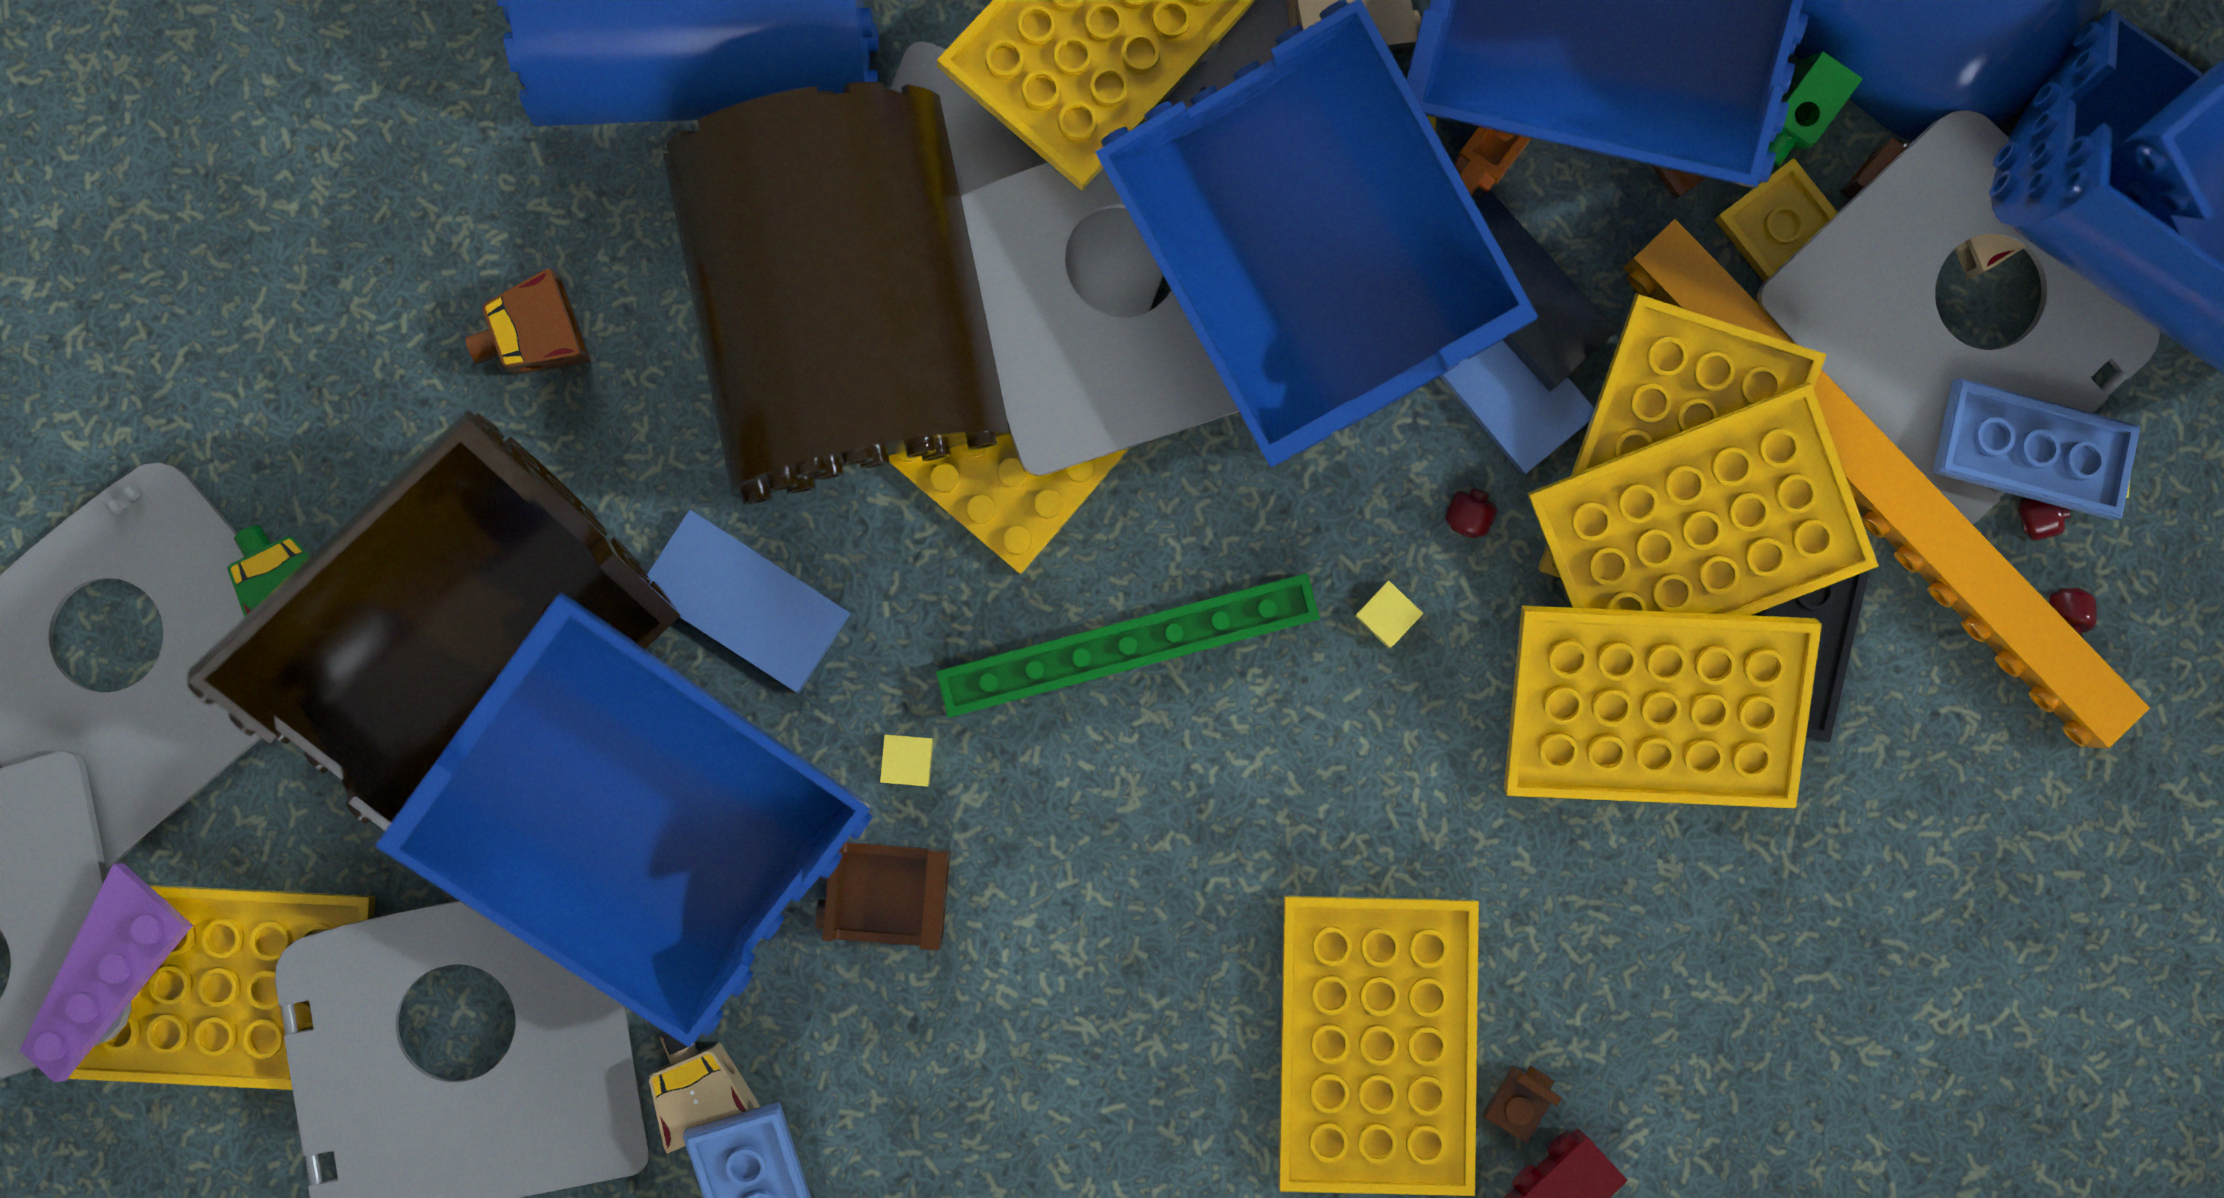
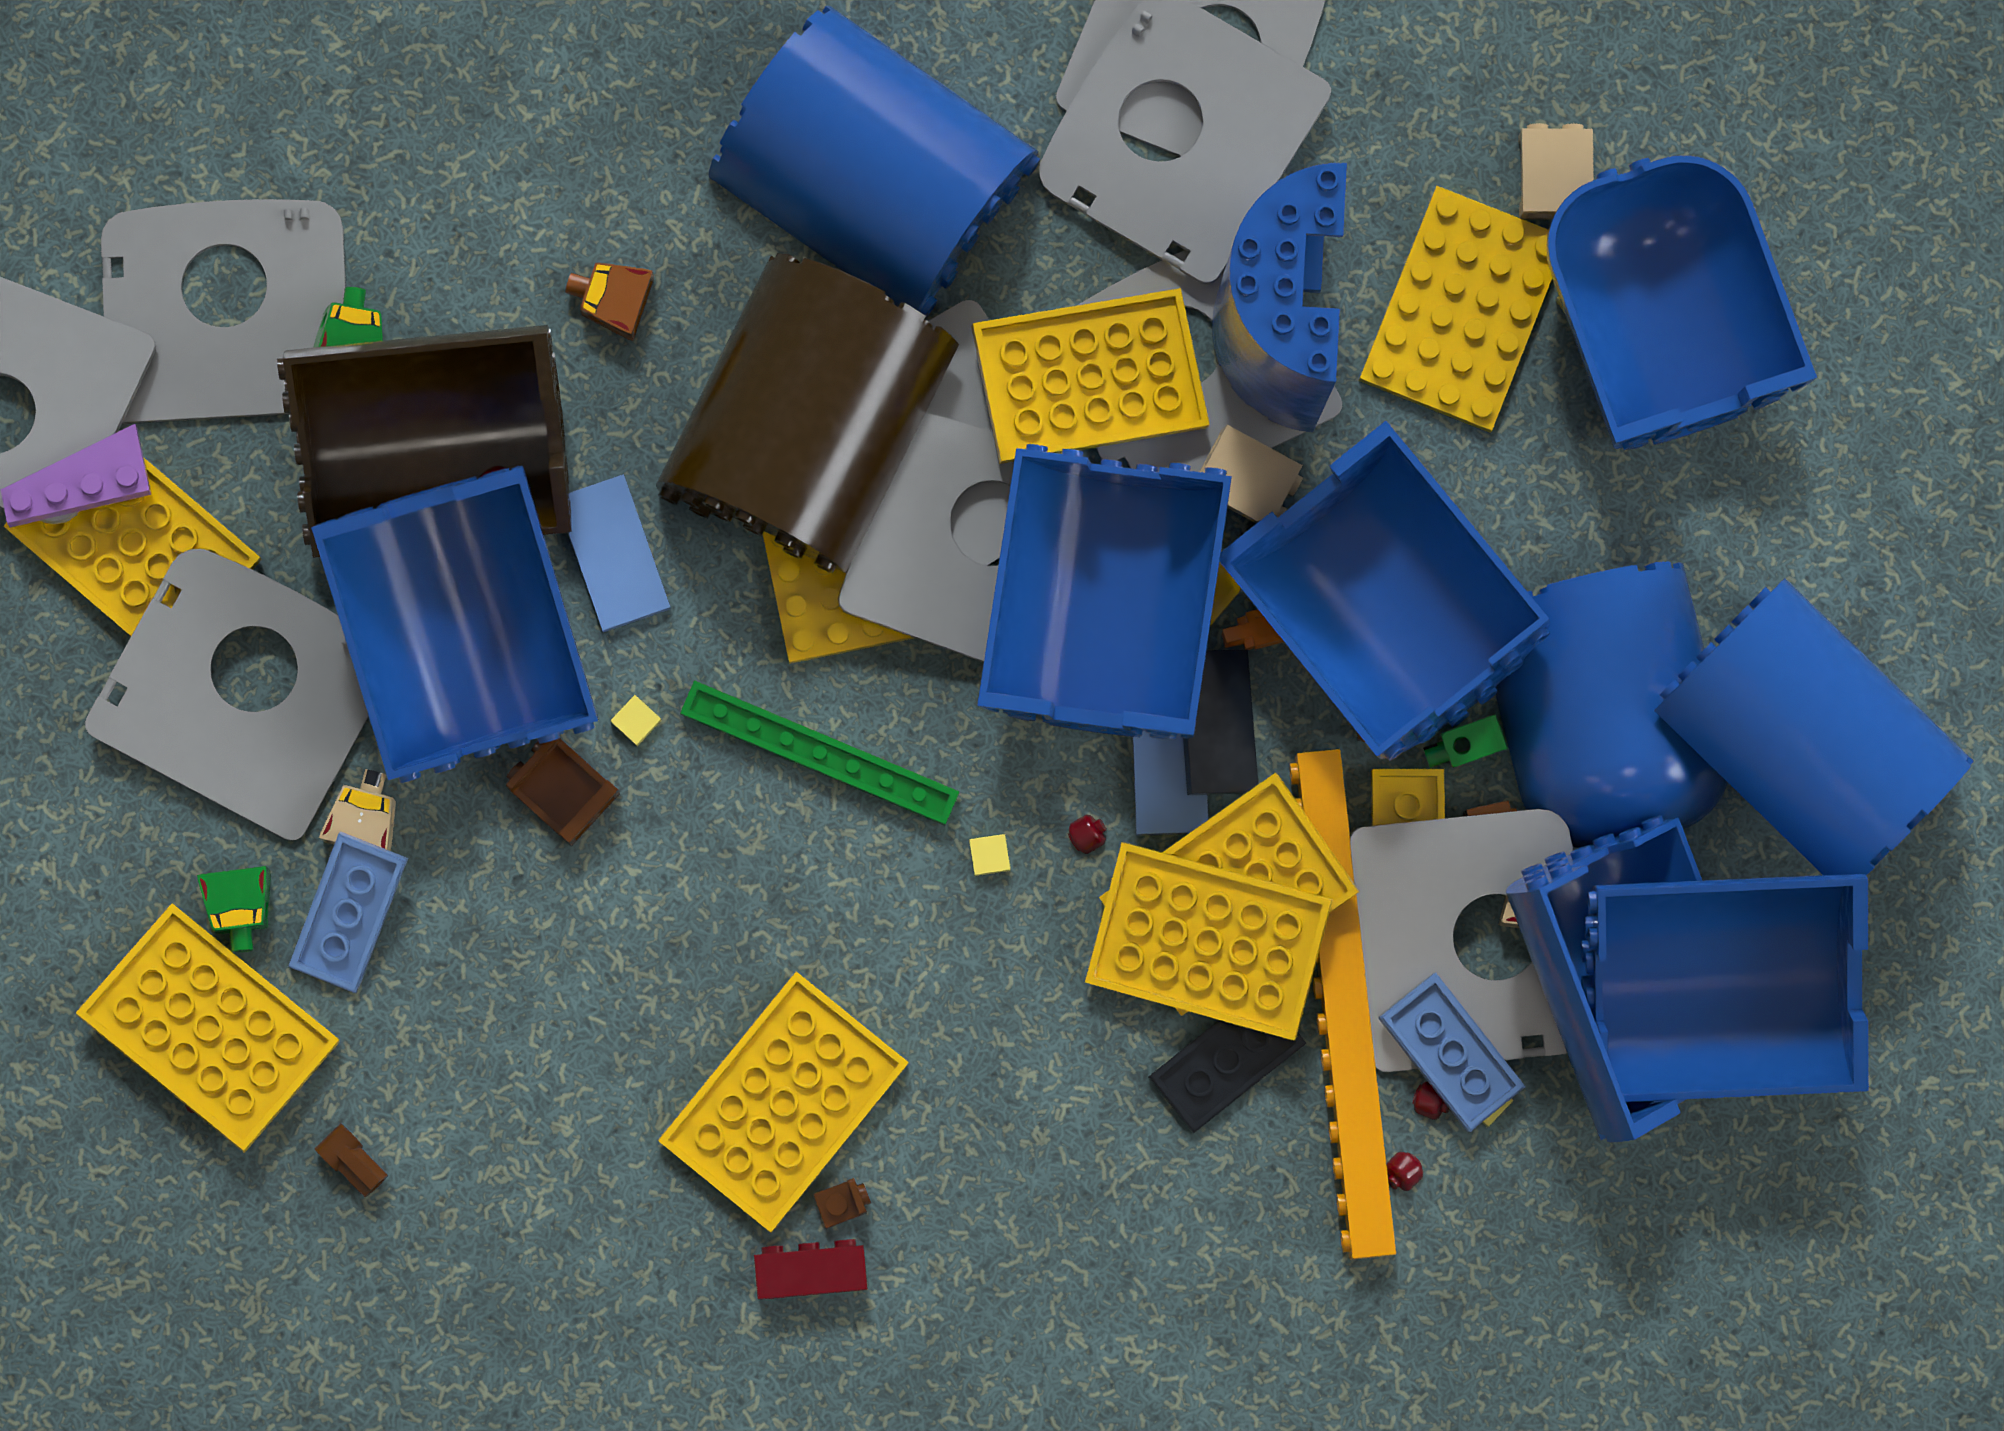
camera: 30 degrees right, 5 degrees down
(1660, 706) = (1104, 1028): yellow plate -> none

